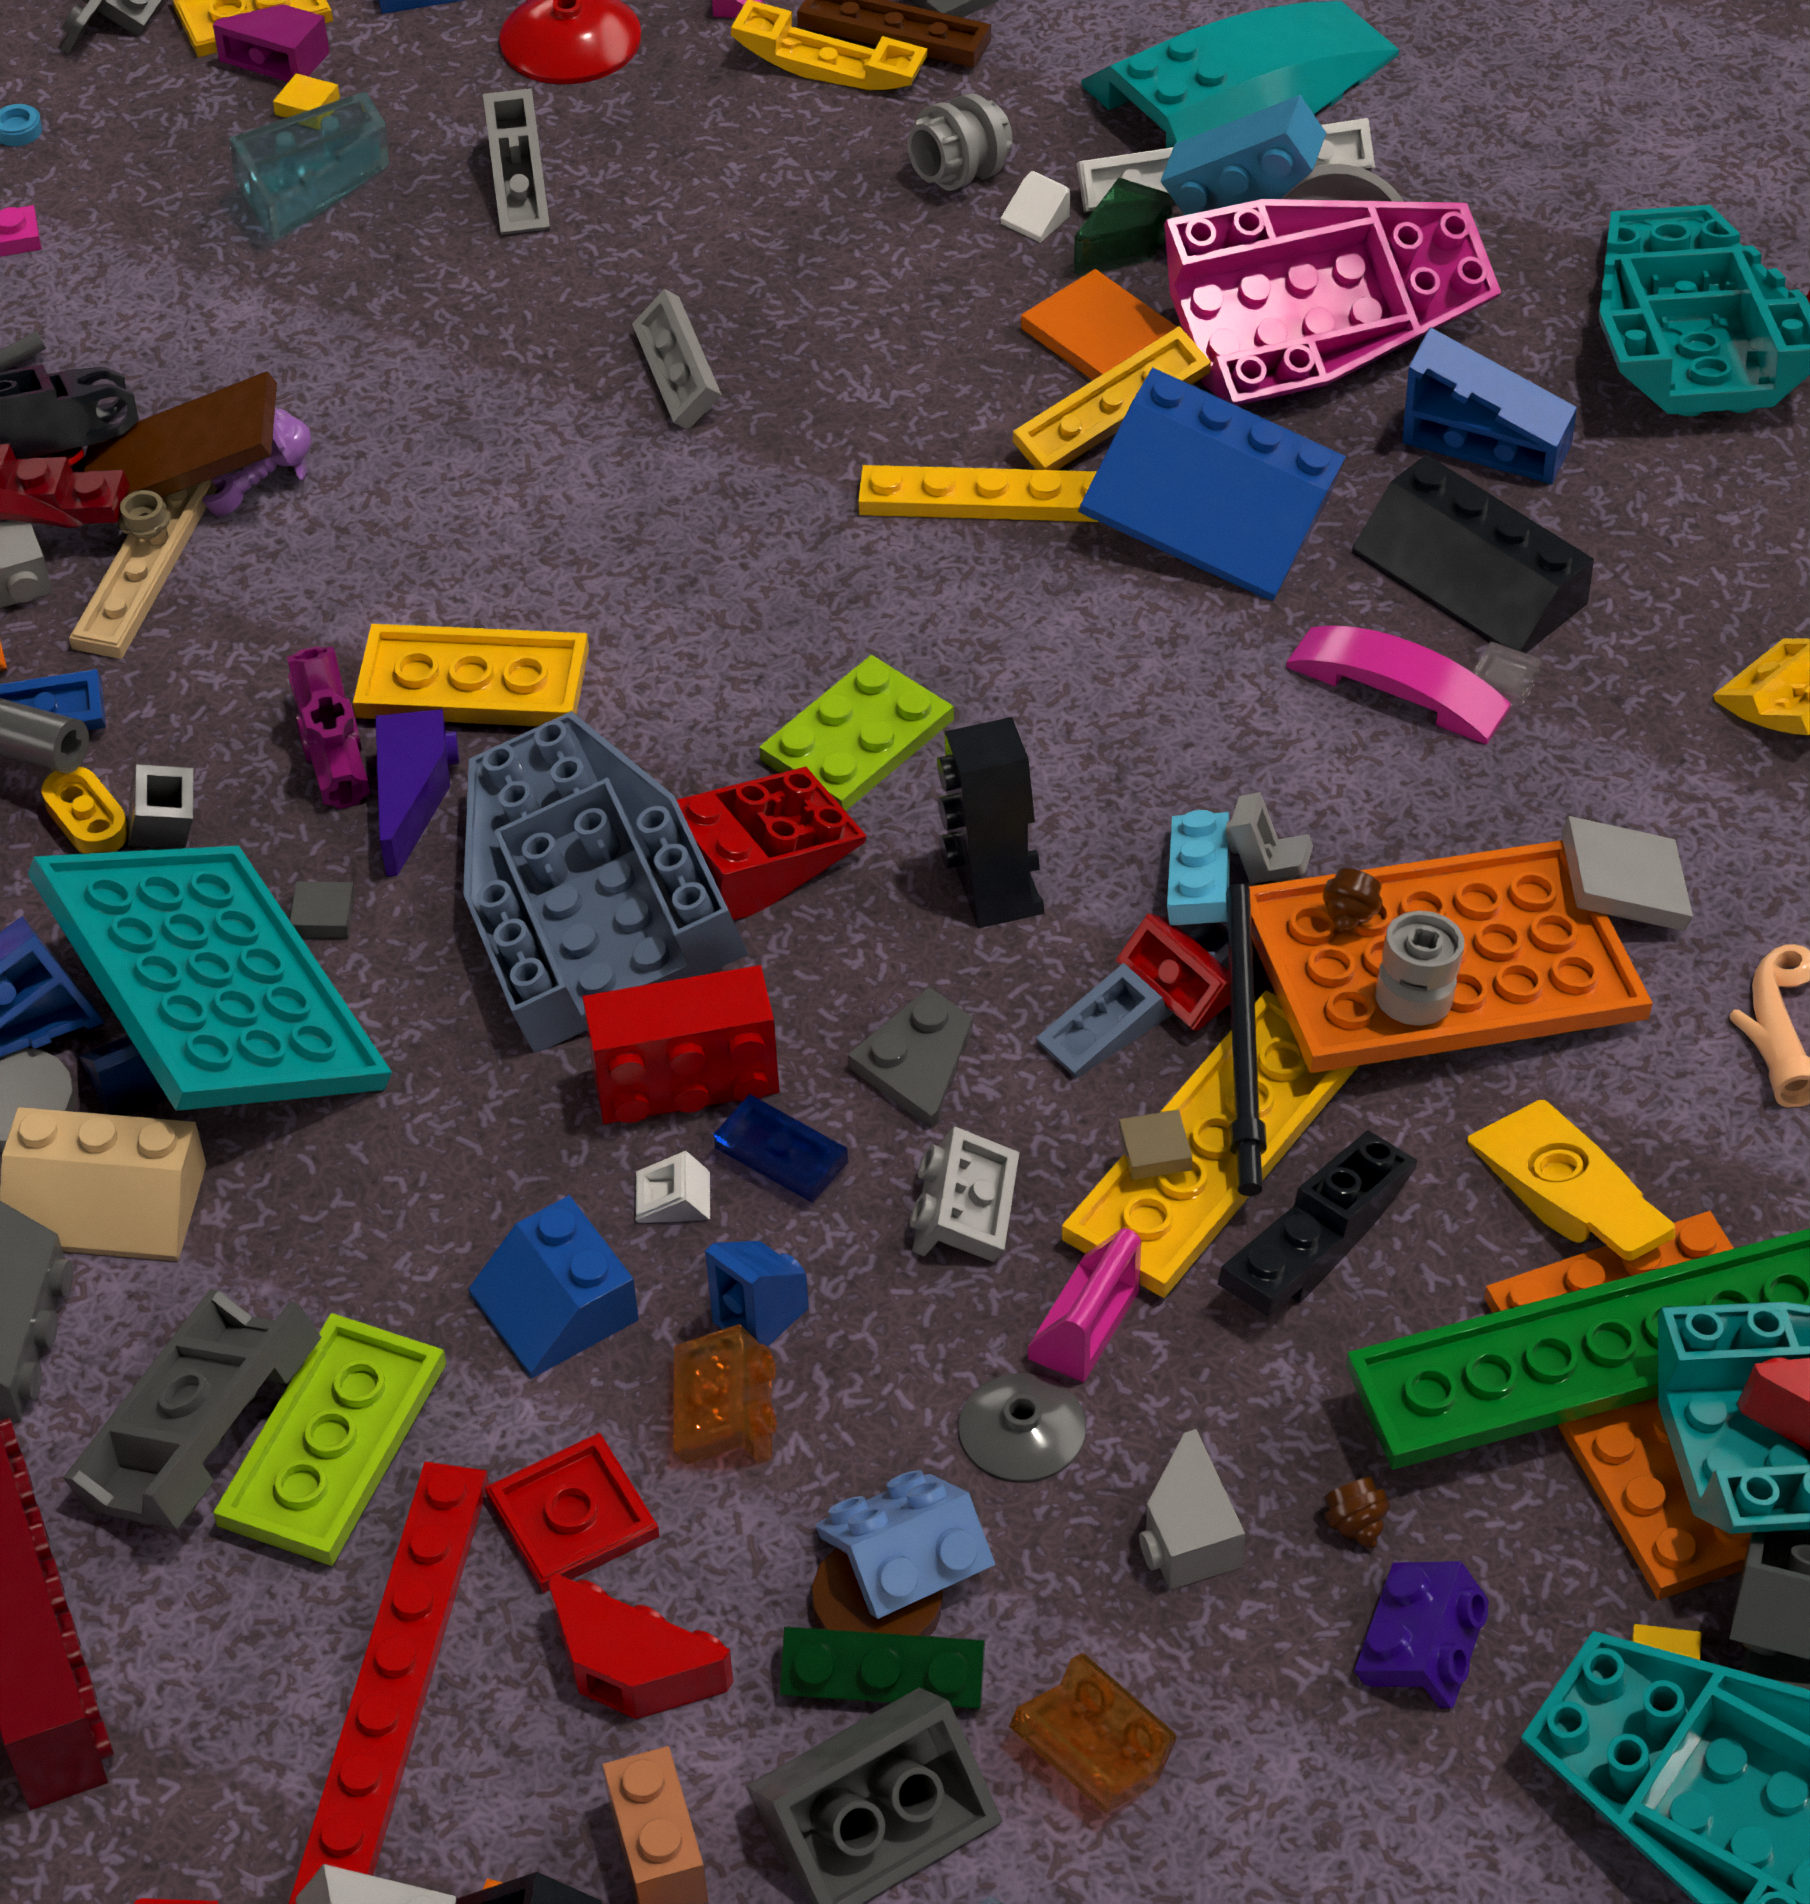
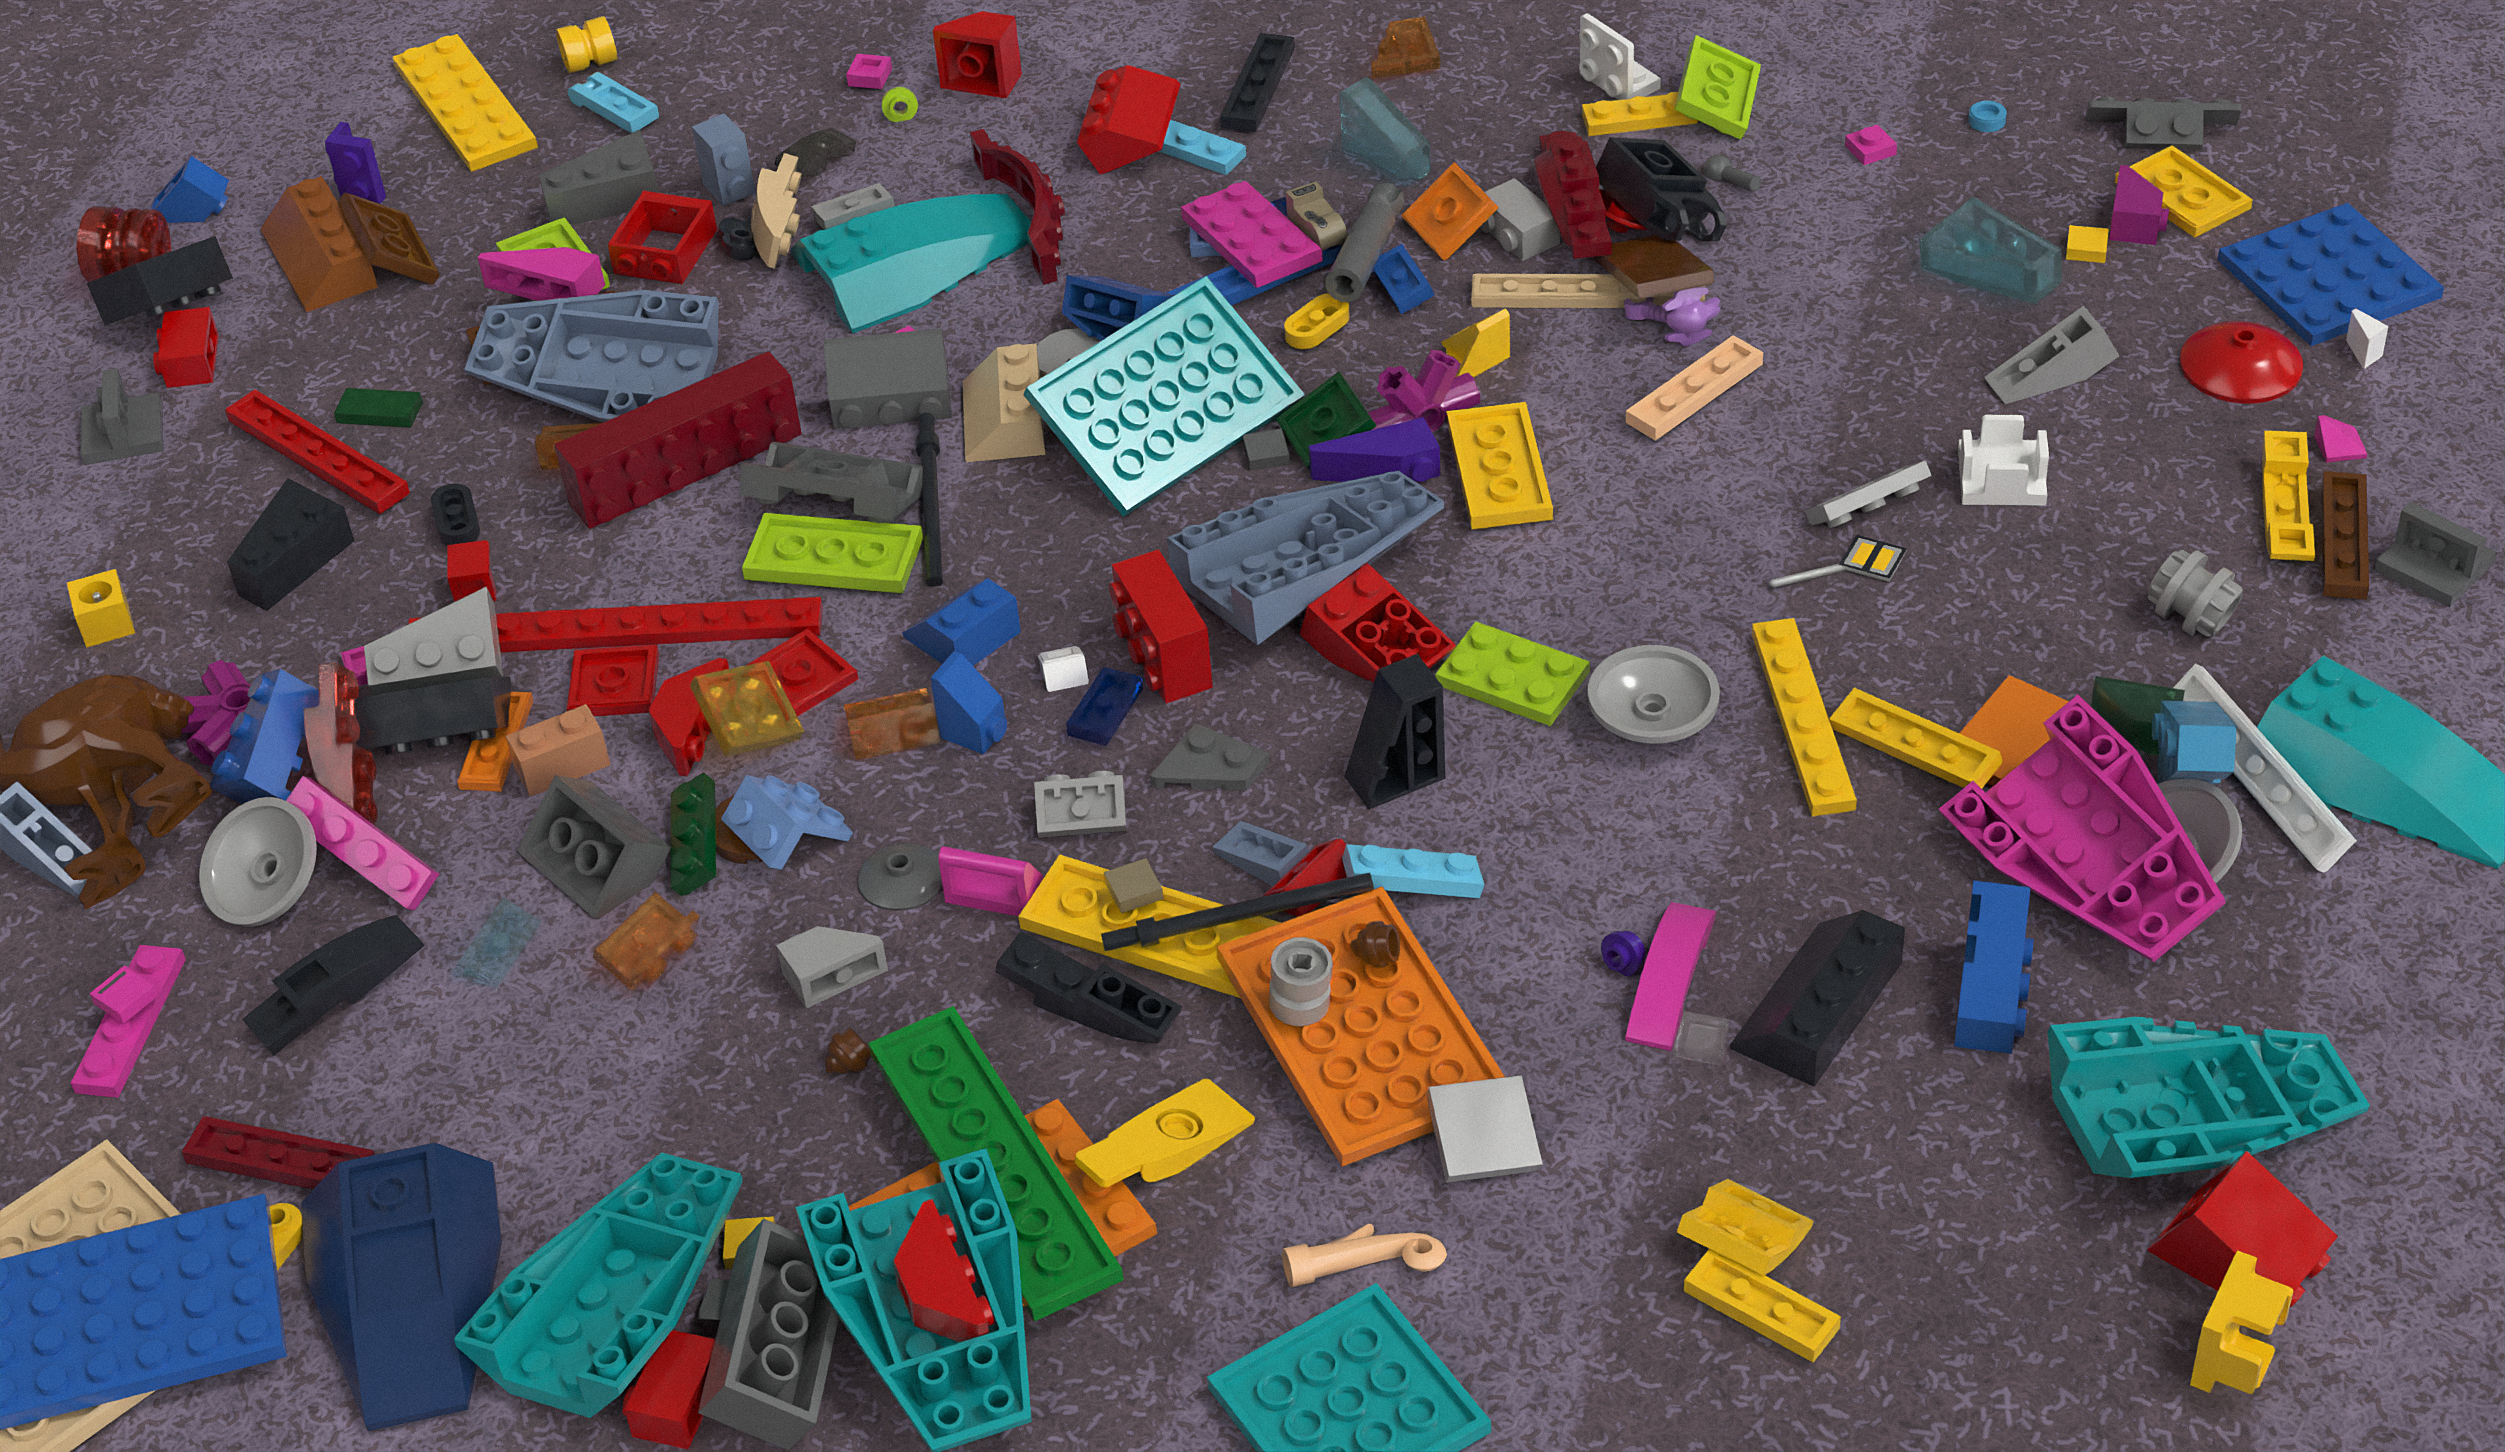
camera: 80 degrees right, 5 degrees down
(134, 1297) = (927, 449): none -> black bar
(143, 514) = (1588, 269): dark tan plate -> none
(160, 806) = (1316, 344): dark grey brick -> none
(223, 656) = (1481, 344): none -> yellow slope
(317, 826) = (1325, 415): none -> dark green tile
(409, 471) = (1694, 387): none -> light nougat plate
(495, 1763) = (614, 679): none -> red tile
(666, 1560) = (746, 708): none -> clear yellow plate
(675, 245) = (2002, 465): none -> white panel
(772, 391) = (1862, 557): none -> piece
(973, 595) = (1653, 694): none -> light grey dish
(1037, 207) = (2150, 663): white slope -> none
(1212, 484) = (1827, 810): blue slope -> none
(1260, 850) = (1451, 904): light grey bracket -> none
(1368, 710) = (1623, 952): none -> dark purple plate
(1424, 1629) = (753, 1104): dark purple bracket -> none

